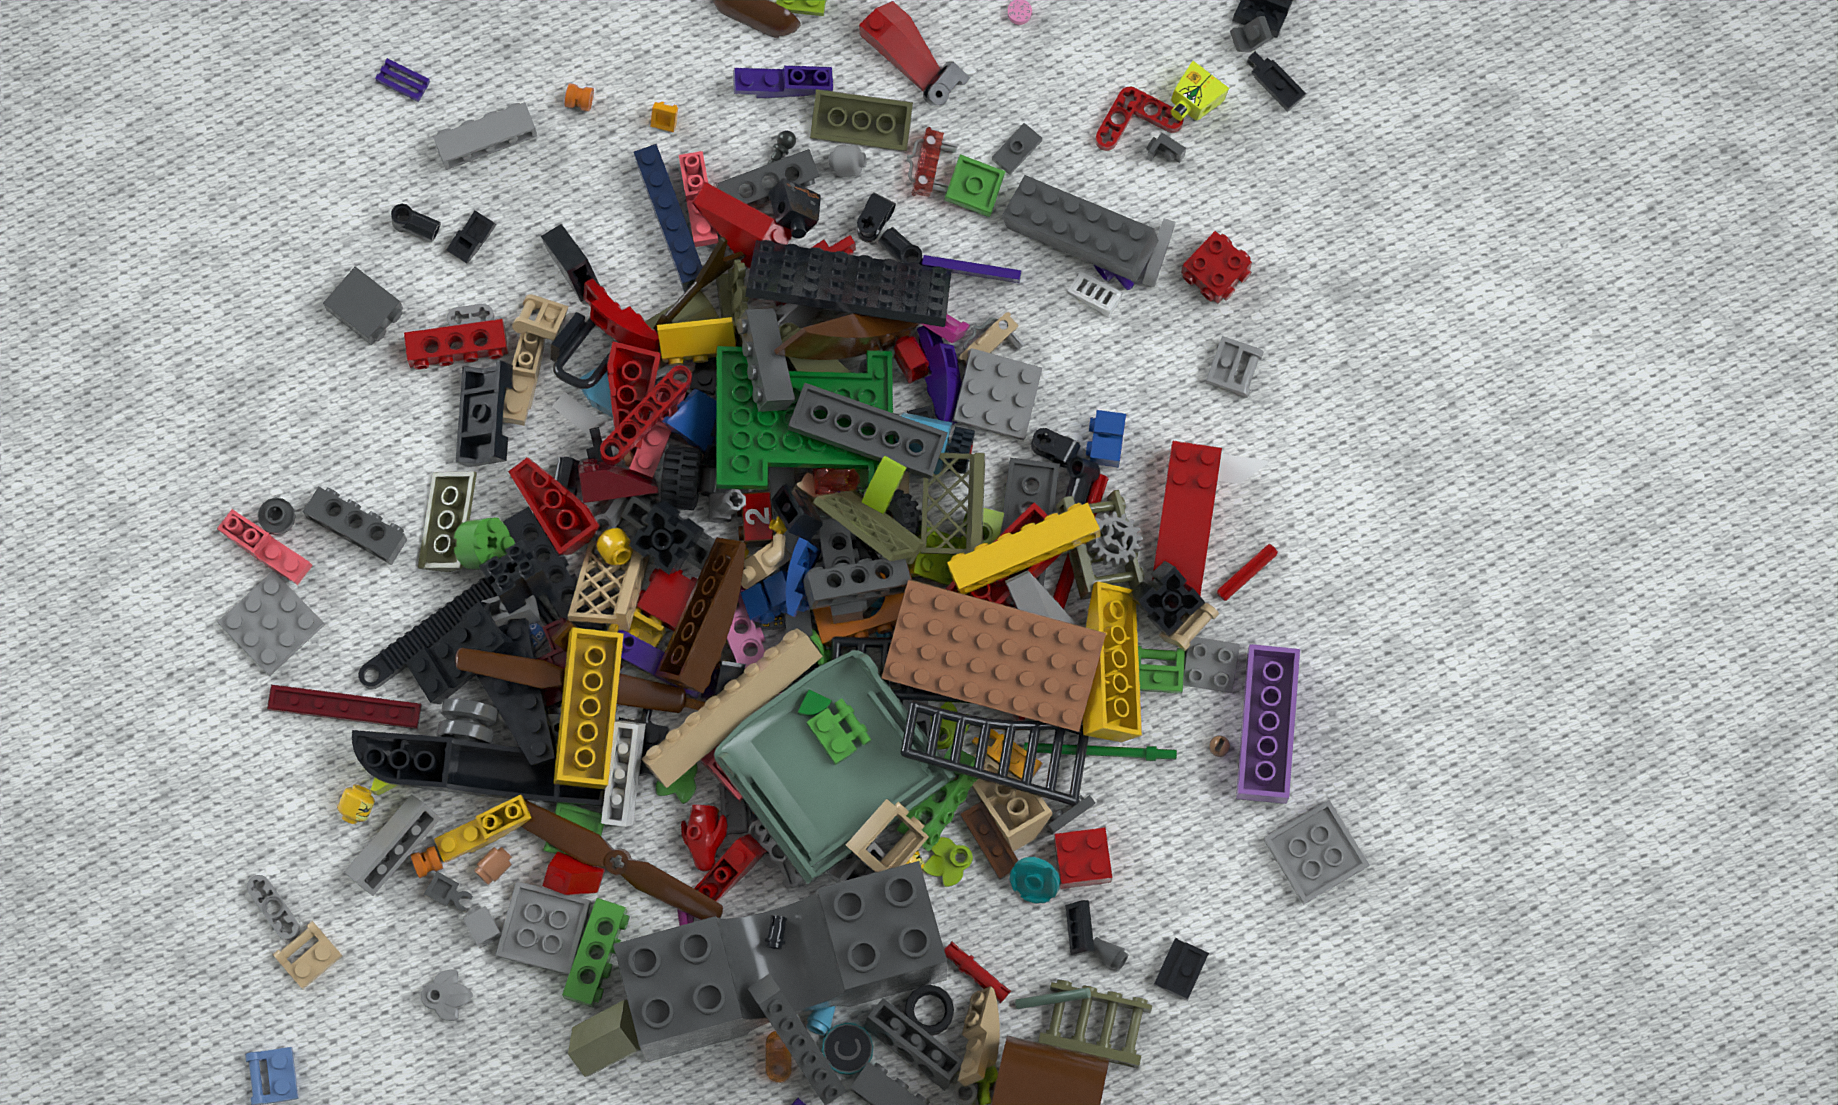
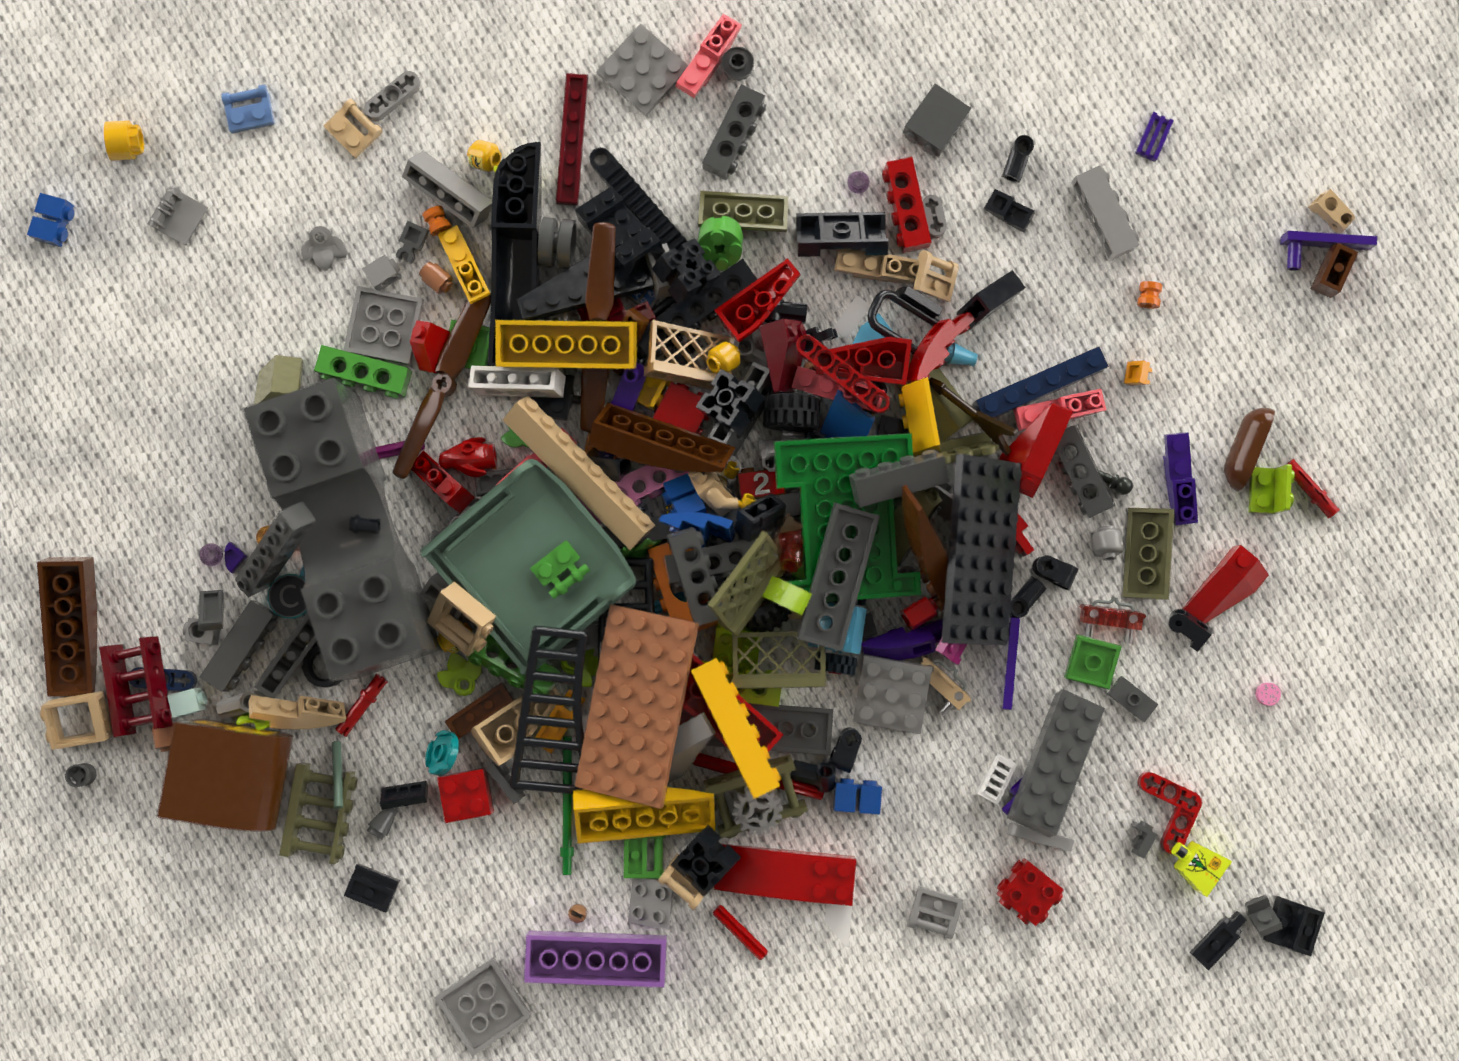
camera: 85 degrees right, 10 degrees up
(421, 388) = (860, 176): none -> clear purple plate
(631, 296) = (960, 356): none -> medium azure cone
(795, 207) = (1056, 497): black torso -> none
(813, 704) = (583, 545): green tile -> none

